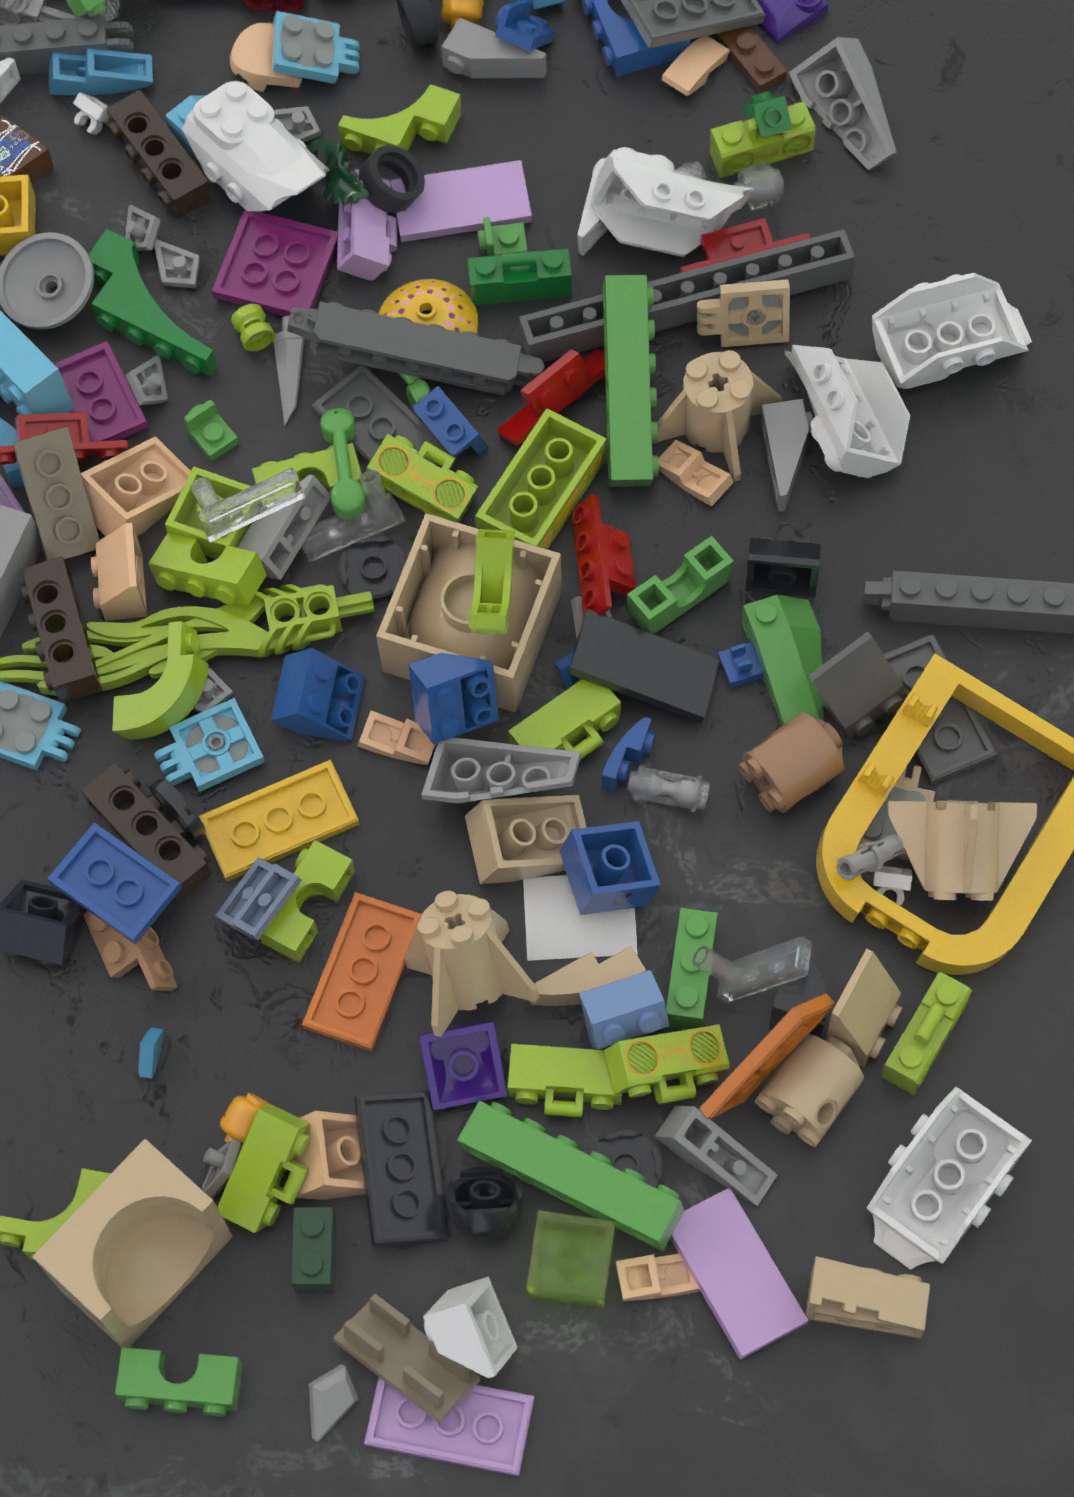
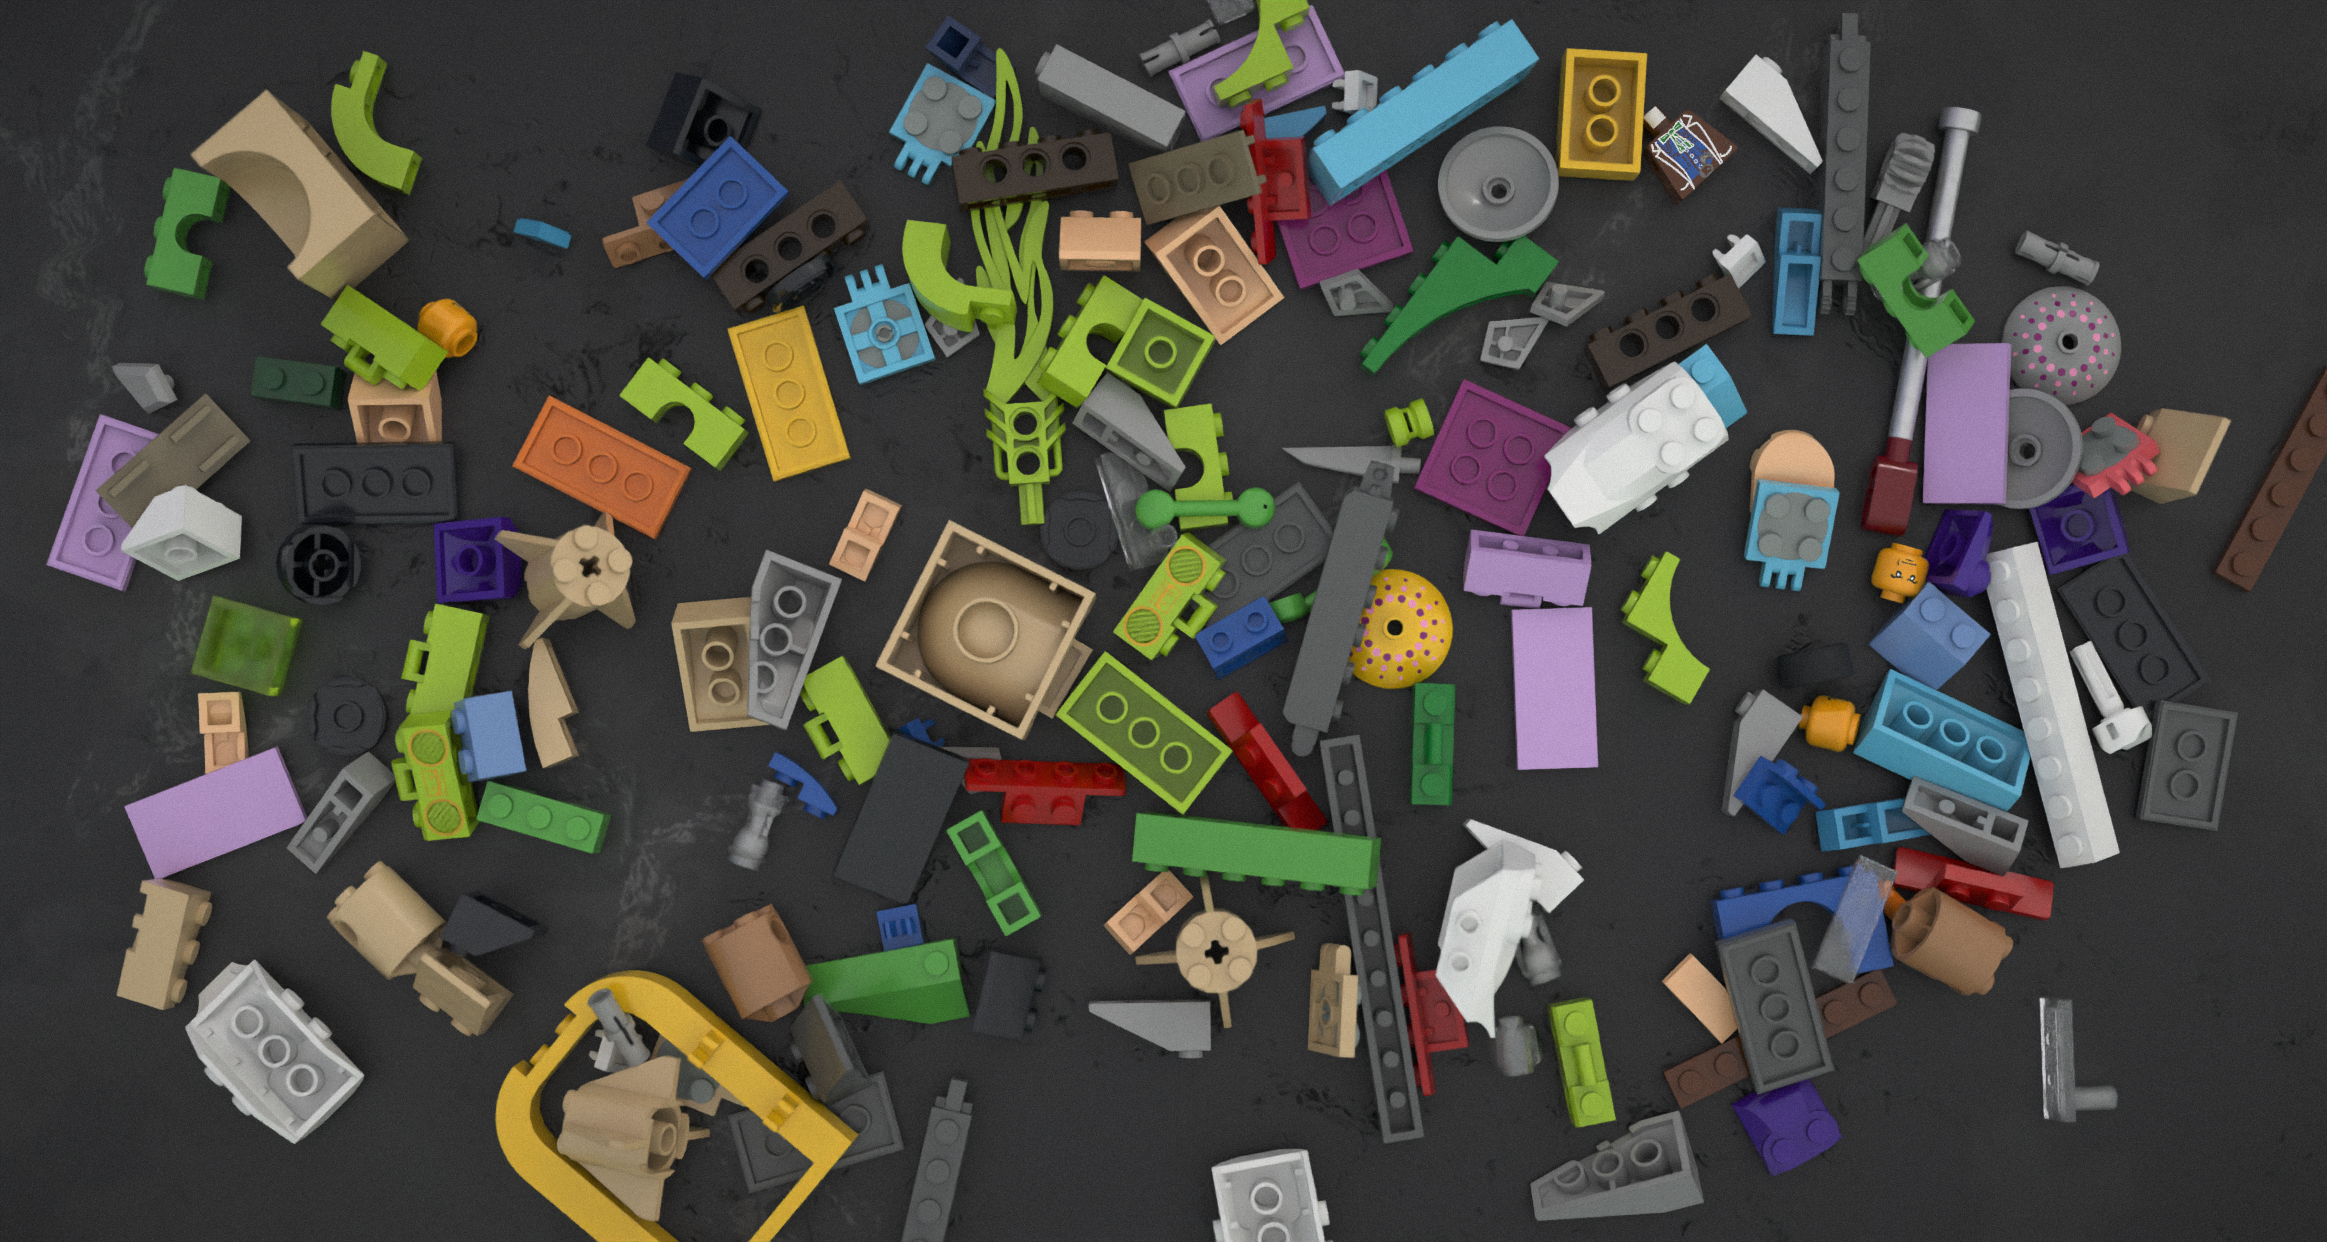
camera: 90 degrees right, 20 degrees up
(210, 430) = (1280, 361): bright green bracket -> none
(221, 1167) = (399, 295): light grey piece -> none
(245, 506) = (1133, 362): clear piece -> none
(258, 898) = (685, 362): sand blue slope -> none
(298, 122) = (1691, 499): light grey piece -> none
(318, 696) = (923, 450): blue slope -> none
(341, 180) = (1626, 541): dark green plant -> none
(404, 166) = (1581, 632): black tyre -> none
(452, 695) = (873, 597): blue slope -> none
(492, 582) = (978, 655): lime arch -> none
(502, 238) = (1489, 731): bright green bracket -> none
(560, 931) = (633, 708): white sticker -> none
(571, 1174) = (334, 657): bright green brick -> none
(609, 868) = (664, 745): blue brick -> none
(756, 971) = (512, 884): clear piece -> none
(767, 1055) = (406, 880): orange tile -> none
(769, 113) = (1596, 1072): green bracket -> none
(856, 411) = (1192, 1108): white slope -> none
(926, 1033) = (436, 1055): lime piece -> none

